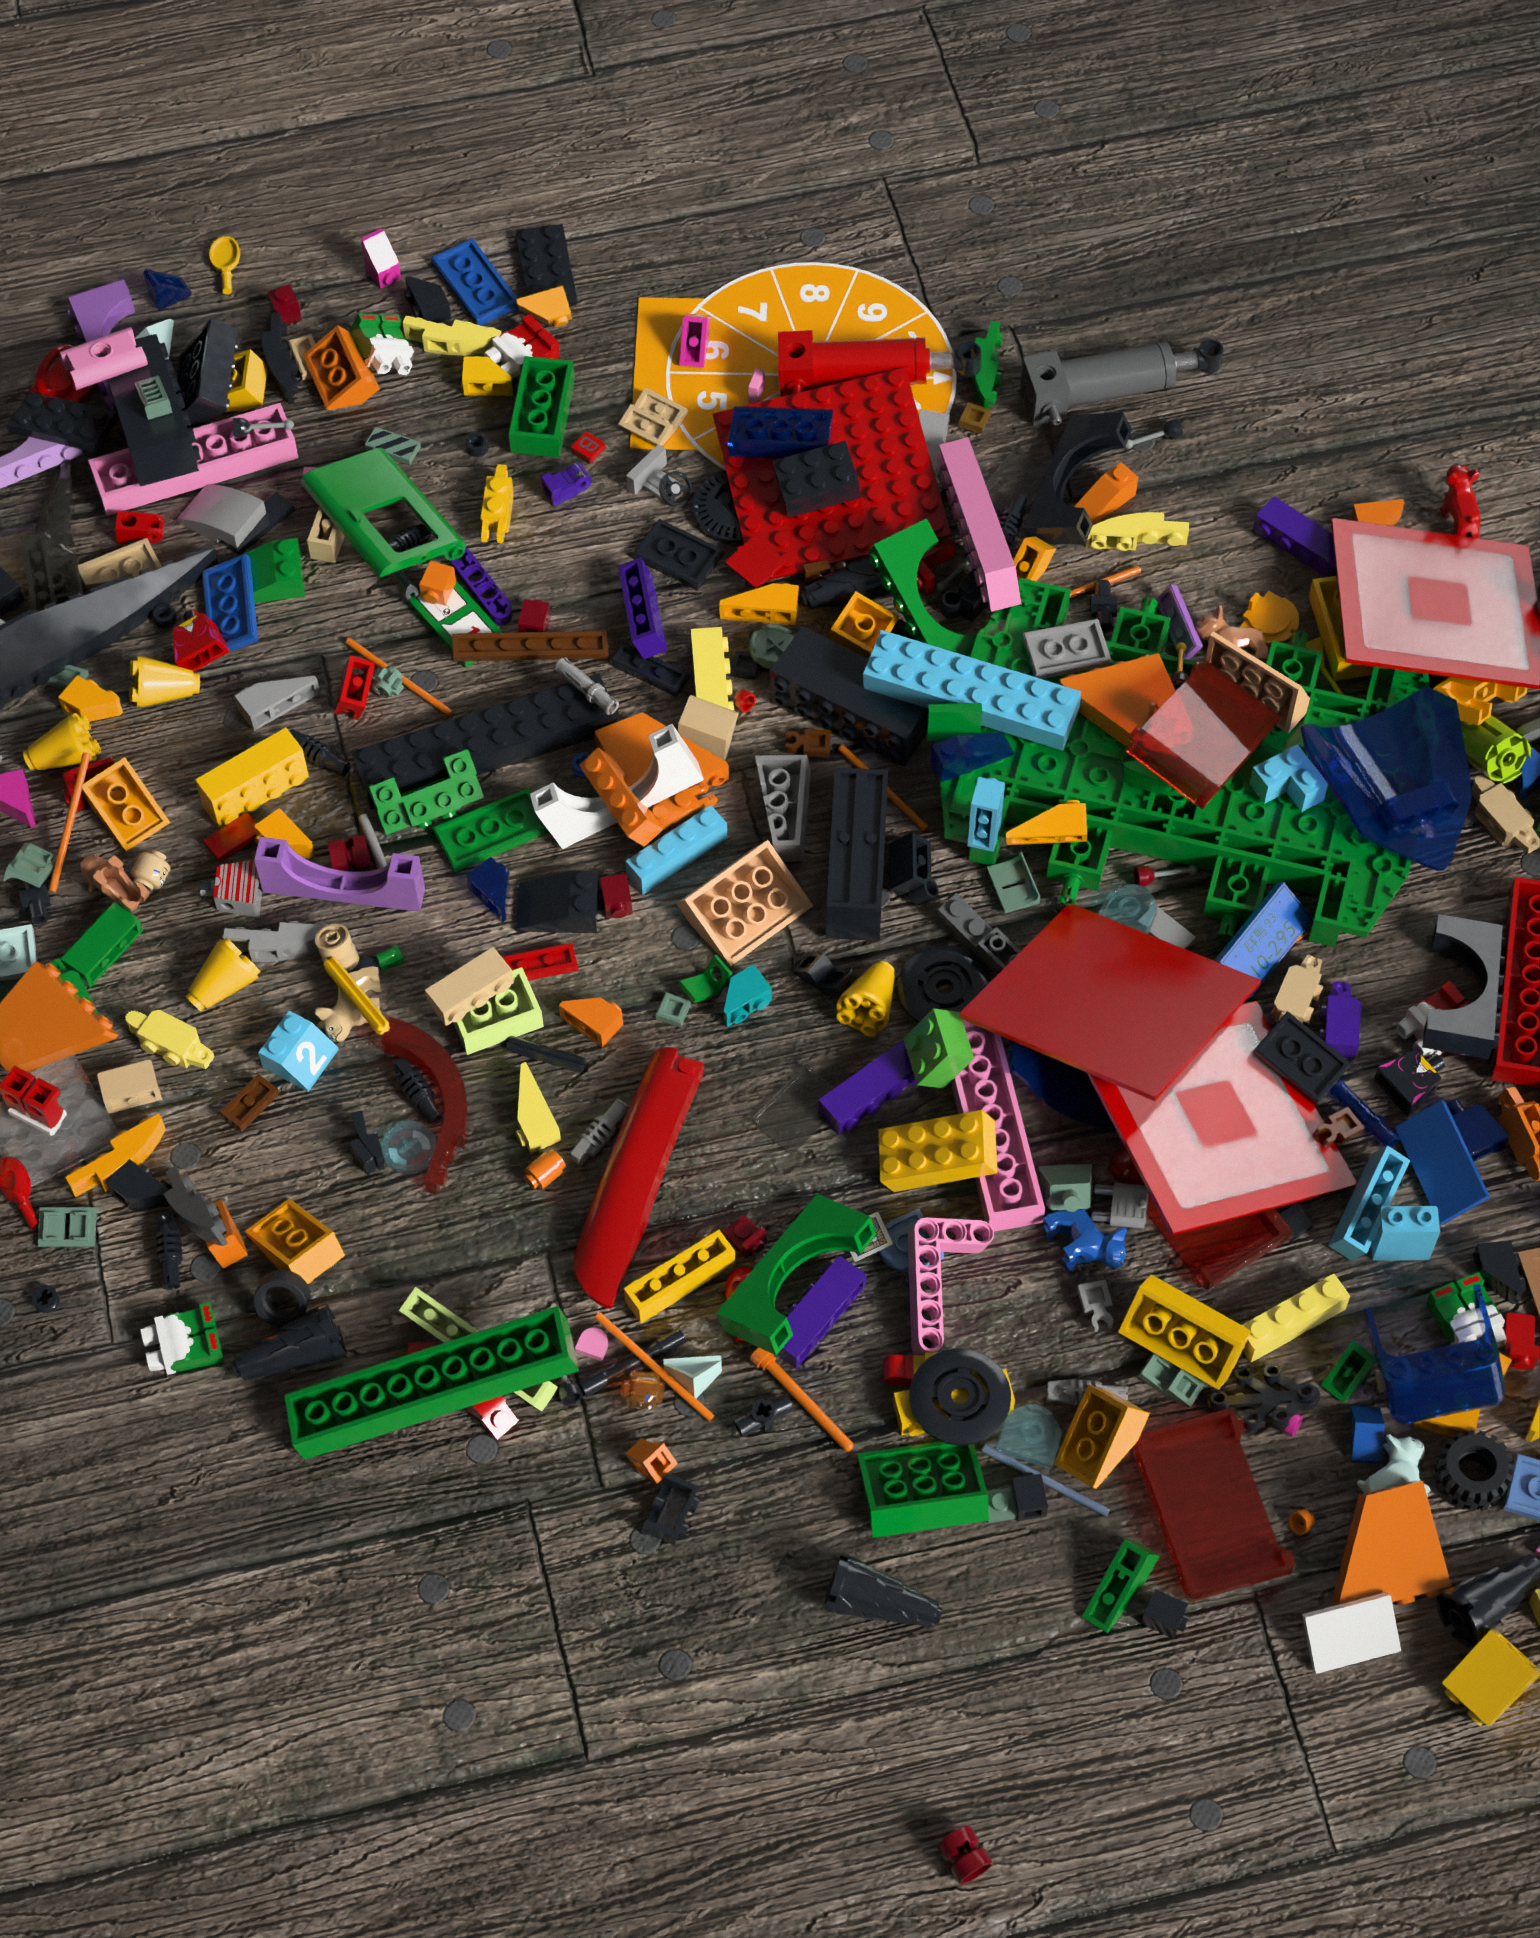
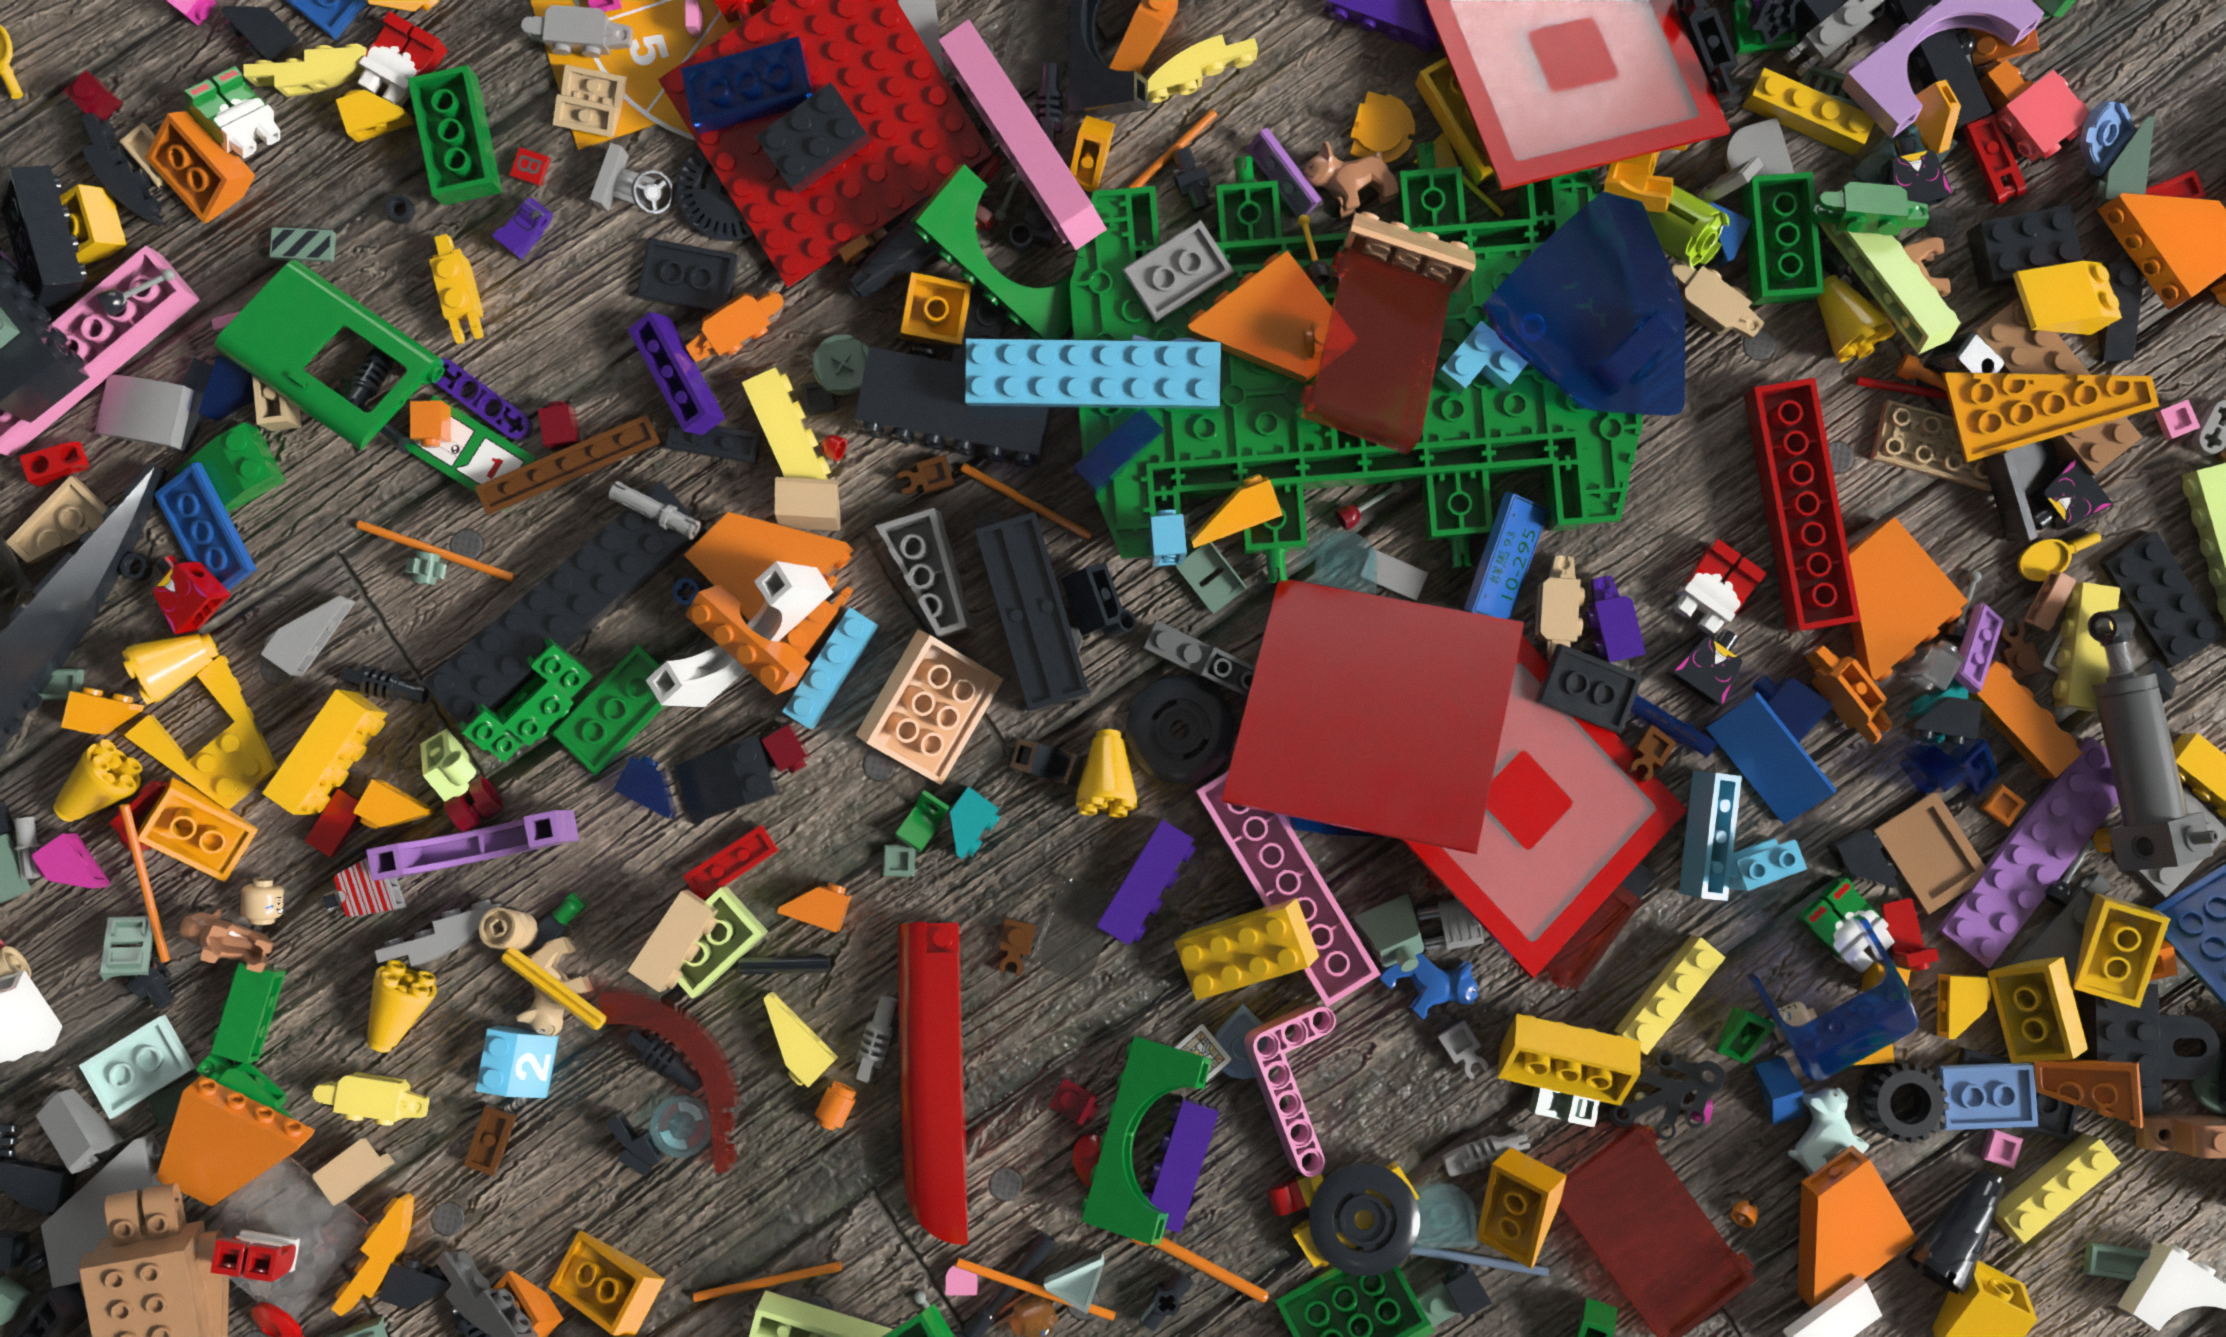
camera: 20 degrees left, 25 degrees up
(170, 770) = (232, 761): none -> yellow wing
(293, 518) = (227, 389): none -> clear blue slope
(345, 813) = (446, 765): none -> yellowish green hinge
(354, 688) = (391, 592): red brick -> none
(372, 841) = (498, 779): light grey bar -> none
(433, 1291) = (767, 1281): none -> orange axle
(663, 369) = (577, 31): none -> light grey hinge
(679, 1276) = (1025, 1181): yellow brick -> none
(700, 591) = (734, 323): none -> orange hinge
(745, 1100) = (1017, 940): none -> reddish brown plate
(755, 562) = (781, 265): red piece -> none
(765, 604) = (814, 312): light orange slope -> none
(938, 1048) = (1207, 832): bright green brick -> none
(953, 720) = (1088, 424): green tile -> none
(1471, 1027) = (1738, 484): arch -> none

